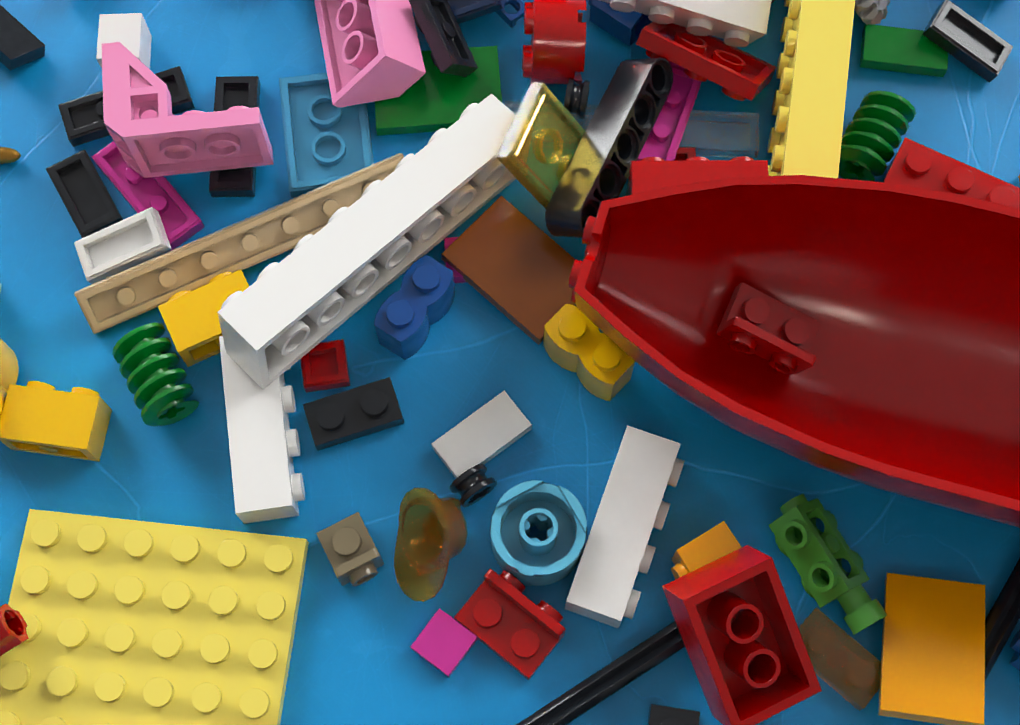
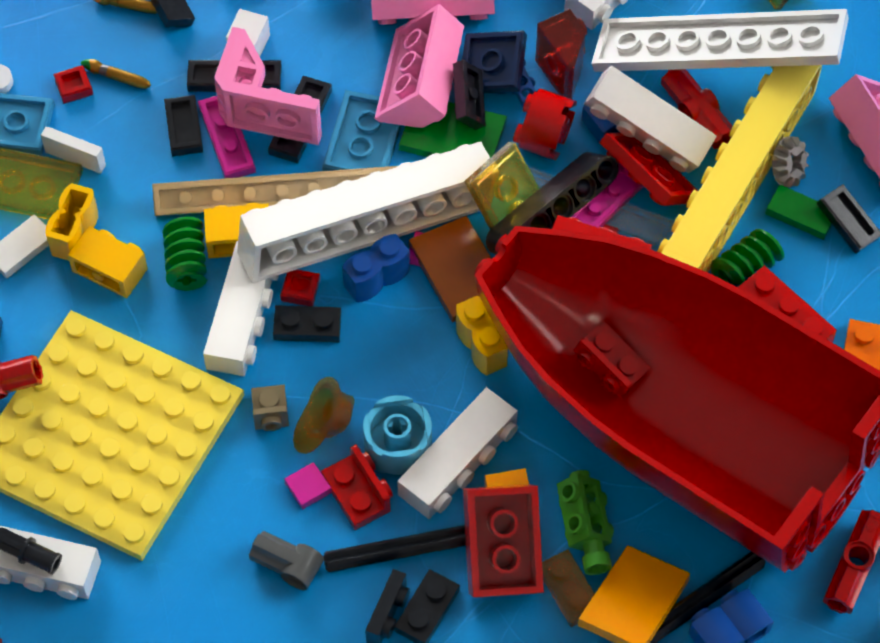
camera: 20 degrees right, 10 degrees down
(122, 245) = (196, 164): white tile -> none
(473, 485) = (367, 393): black bush -> none
(482, 435) = (387, 366): white tile -> none
(577, 97) = (545, 167): black bush -> none

